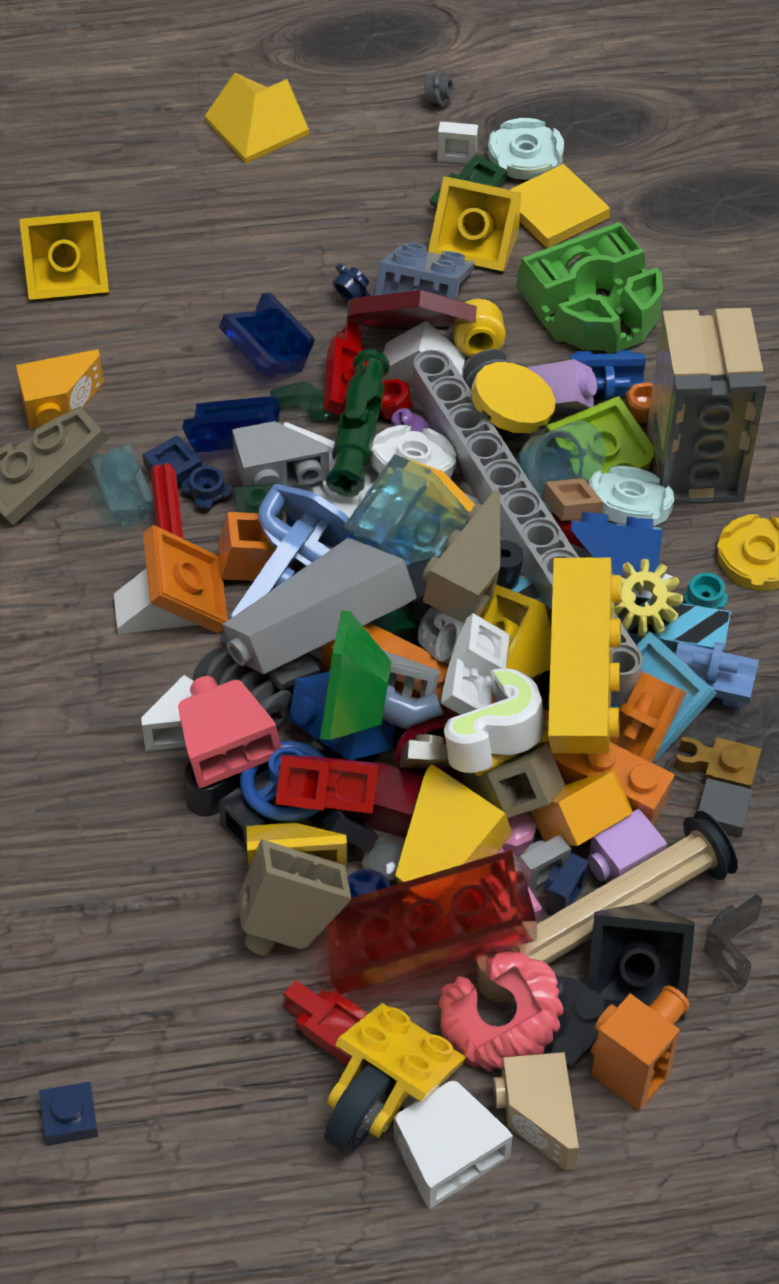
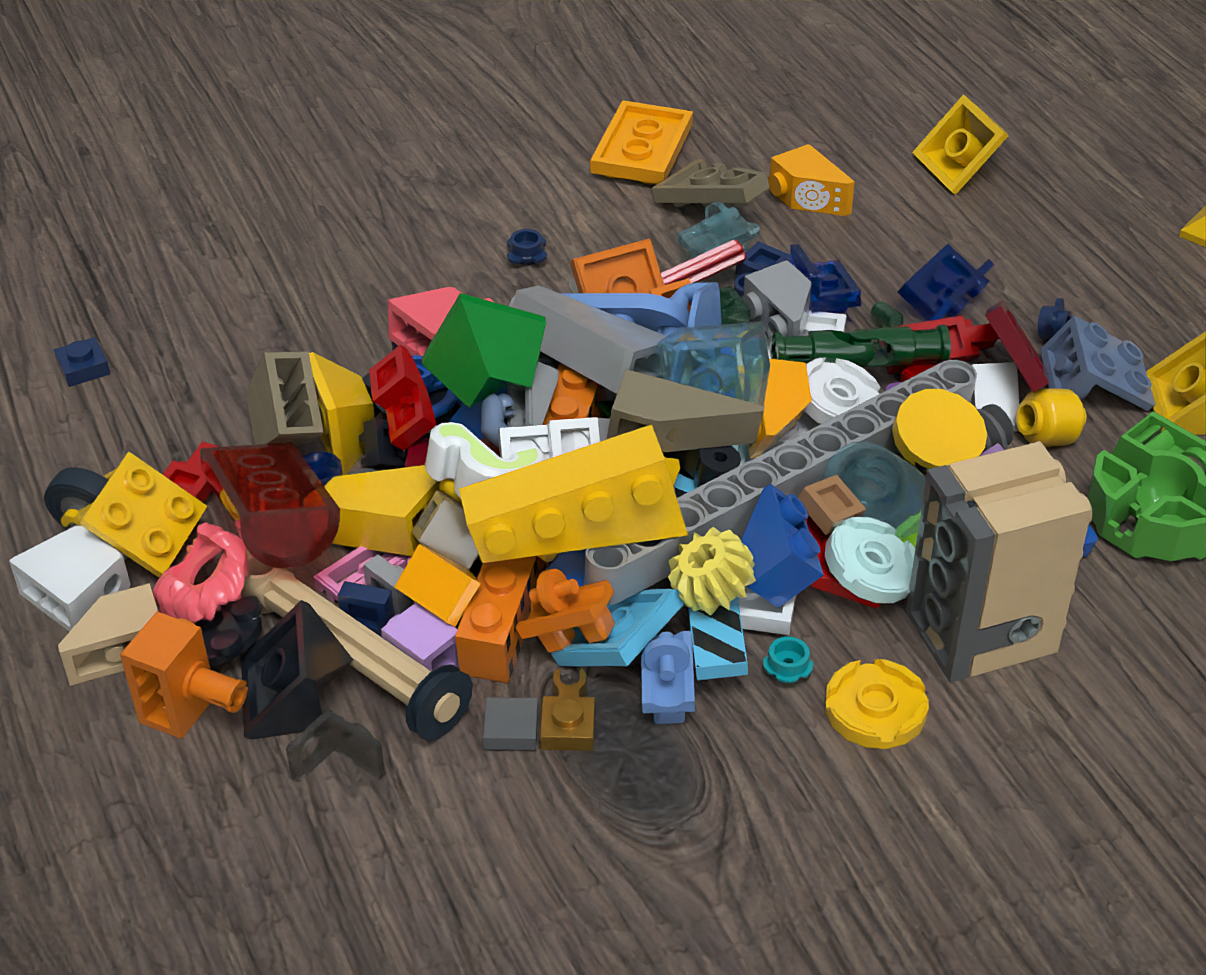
camera: 75 degrees right, 10 degrees down
(50, 641) = (526, 247): none -> dark blue plate

